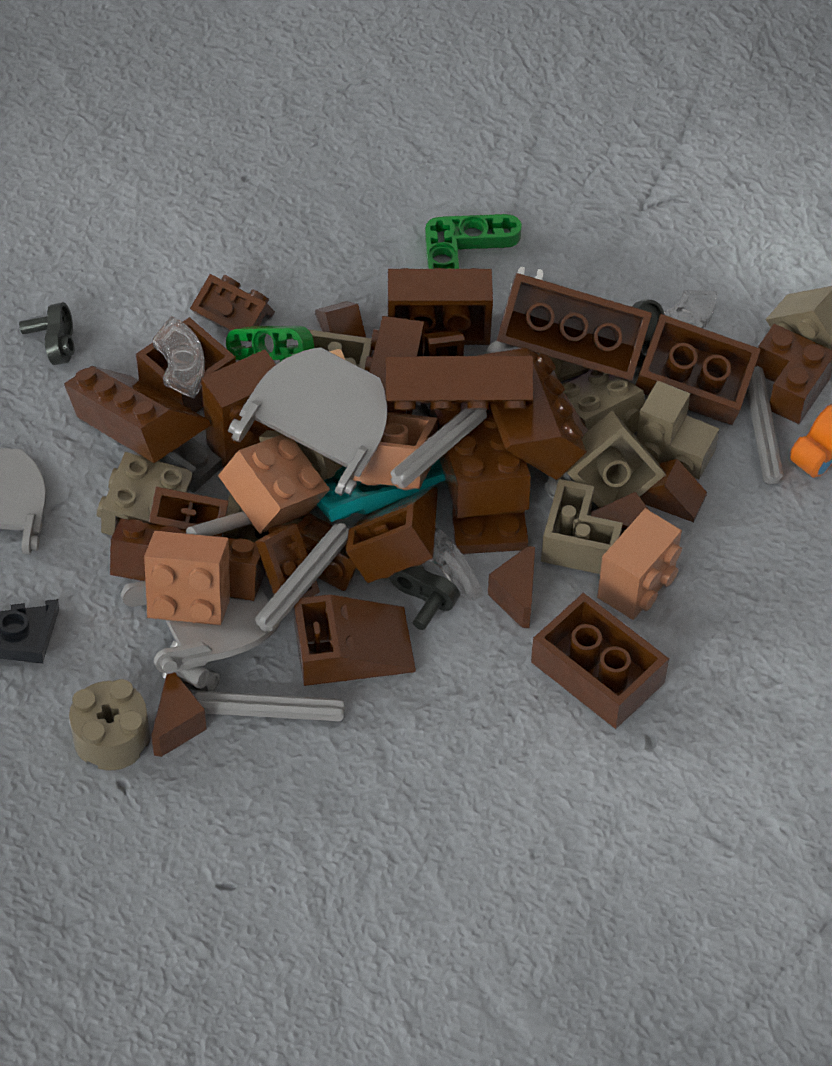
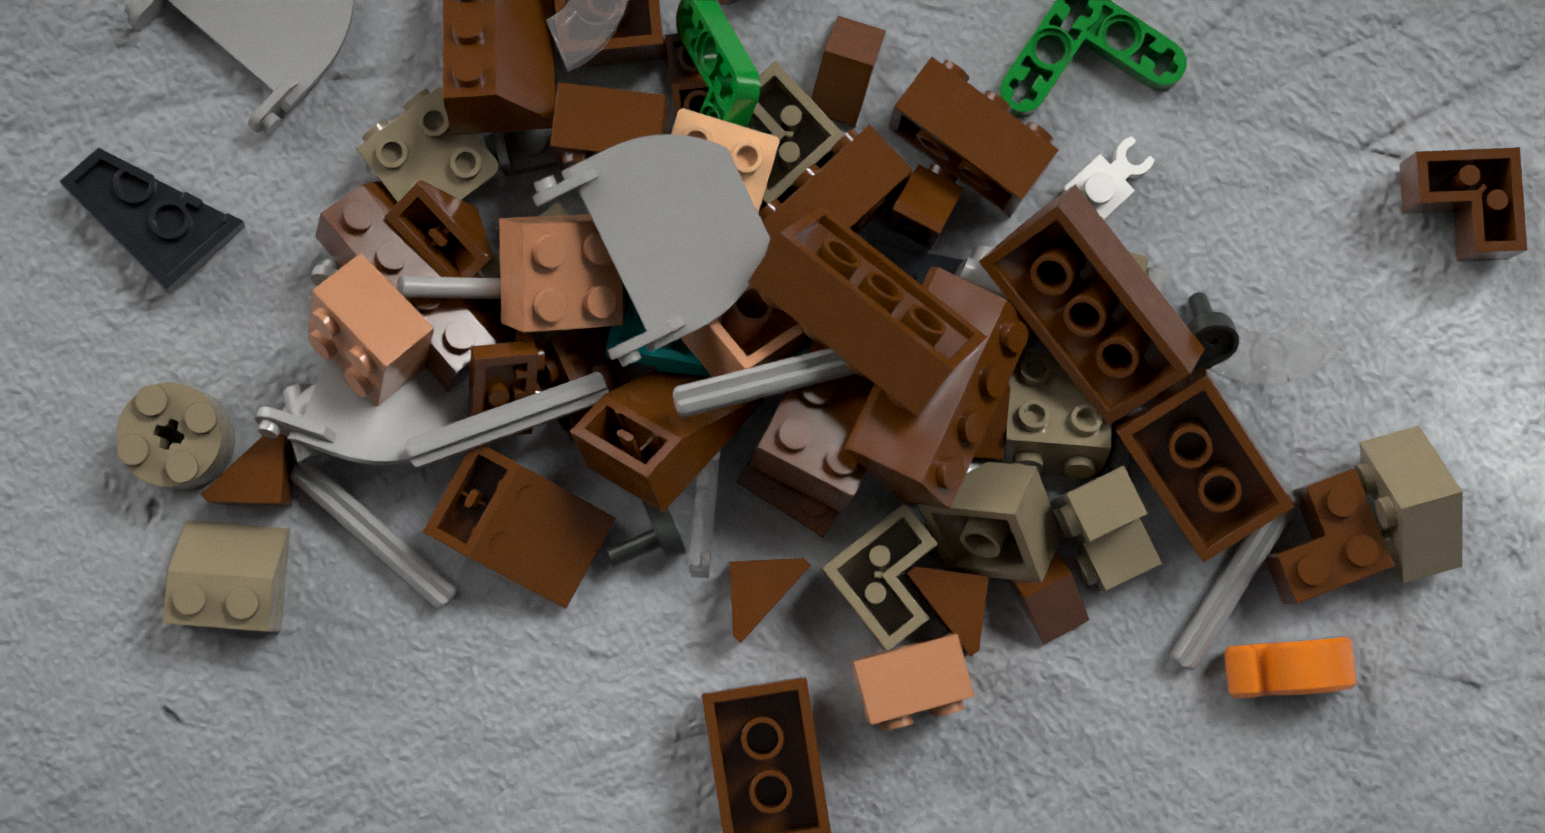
camera: 35 degrees right, 30 degrees up
(205, 783) = (228, 577): none -> dark tan slope
(718, 181) = (1479, 189): none -> reddish brown brick

